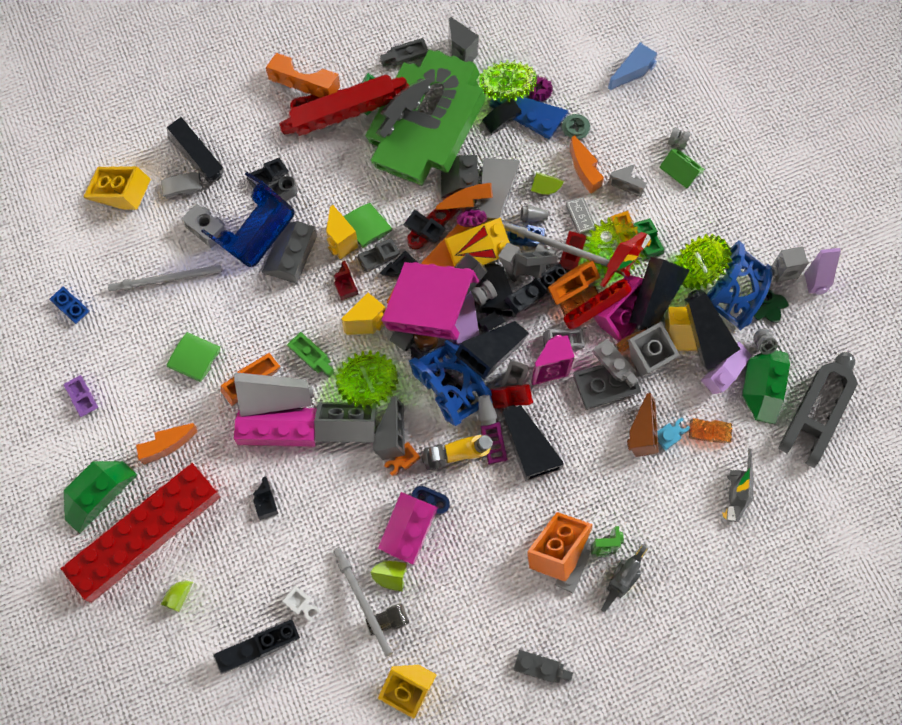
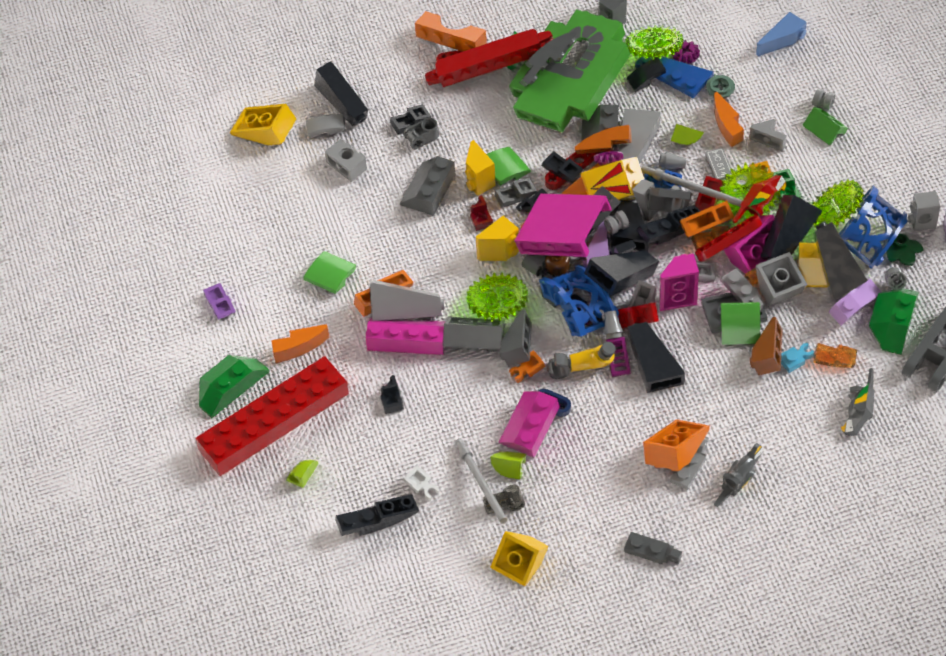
camera: 10 degrees right, 15 degrees down
(69, 305) = (211, 225): blue slope -> none
(128, 284) = (269, 208): light grey bar -> none
(259, 229) = (402, 162): clear blue windscreen -> none
(311, 354) = (444, 274): bright green hinge -> none
(404, 53) = (557, 14): dark grey hinge -> none
(606, 546) = (722, 443): bright green bracket -> none
(615, 401) = (740, 323): none -> bright green slope

